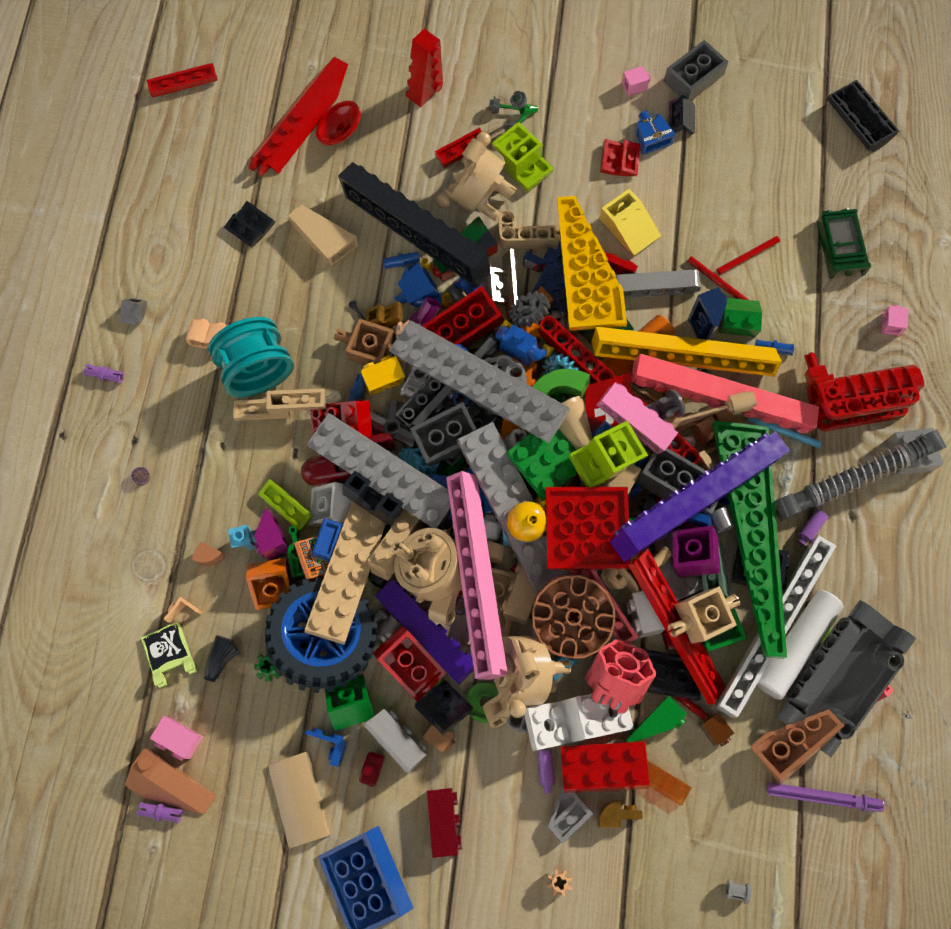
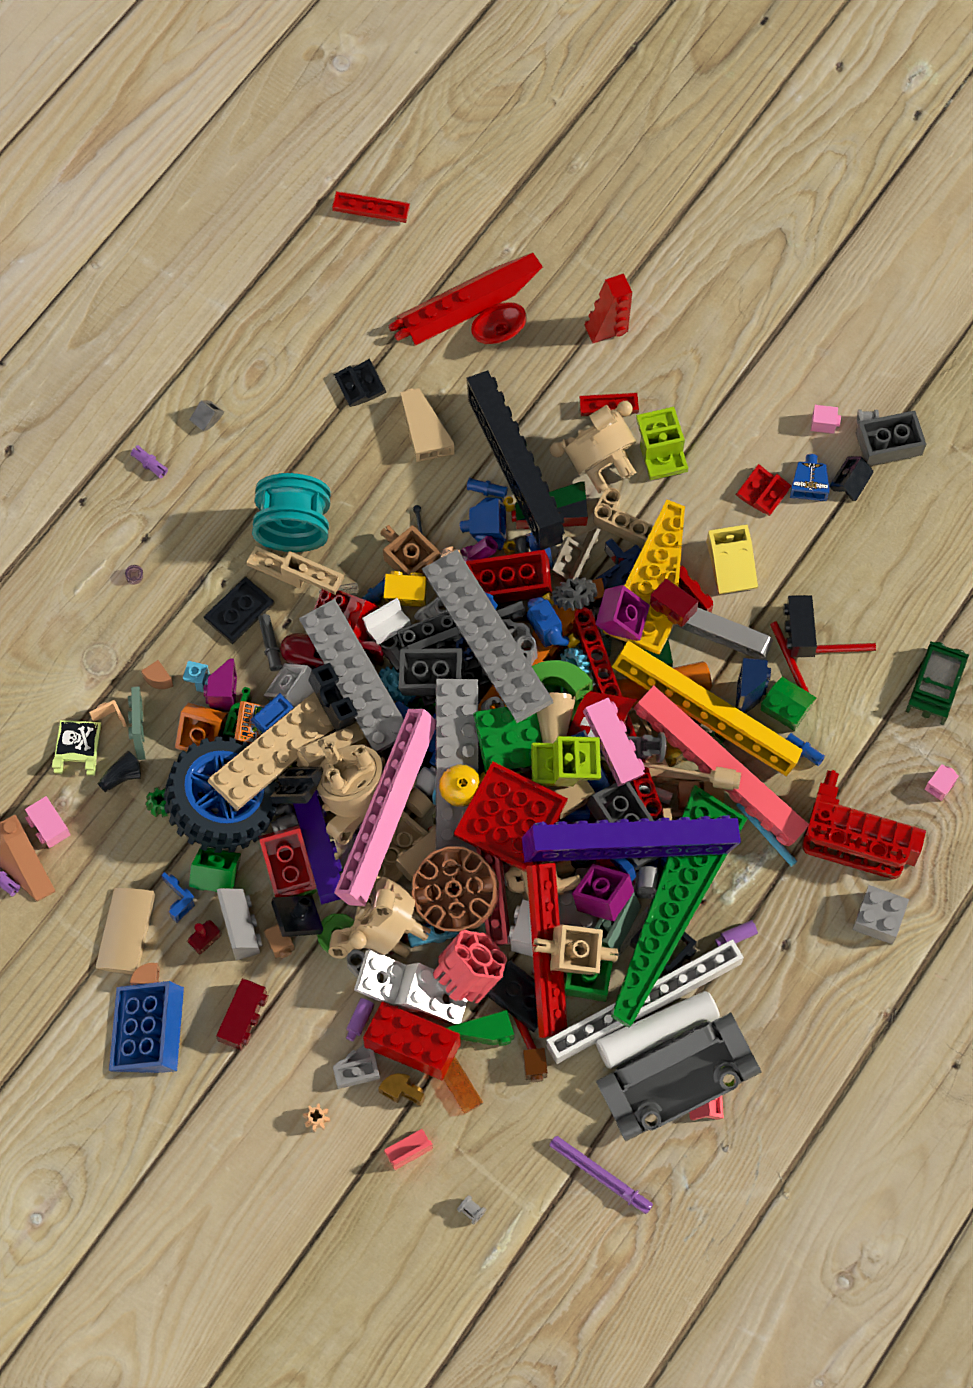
camera: 25 degrees right, 5 degrees down
(202, 331) = (260, 466): light nougat brick -> none
(207, 603) = (136, 718): none -> sand green wing
(248, 462) = (239, 610): none -> black tile
(285, 505) = (252, 666): lime plate -> none
(291, 478) = (272, 650): none -> dark grey axle
(340, 833) = (146, 974): none -> nougat brick
(381, 411) = (386, 621): none -> white panel
(385, 316) = (440, 535): pearl gold brick -> none
(385, 593) = (297, 785): none -> black slope
(518, 102) = (686, 384): plant -> none
(579, 306) = (622, 613): none -> magenta slope
(616, 276) = (673, 603): none -> dark red brick
(653, 866) = (408, 1149): none -> coral panel
(663, 65) = (866, 415): none -> light grey bush
(715, 250) = (800, 626): none -> black brick
(793, 745) = (597, 1111): nougat wedge -> none
(852, 478) = (724, 901): dark grey piece -> none

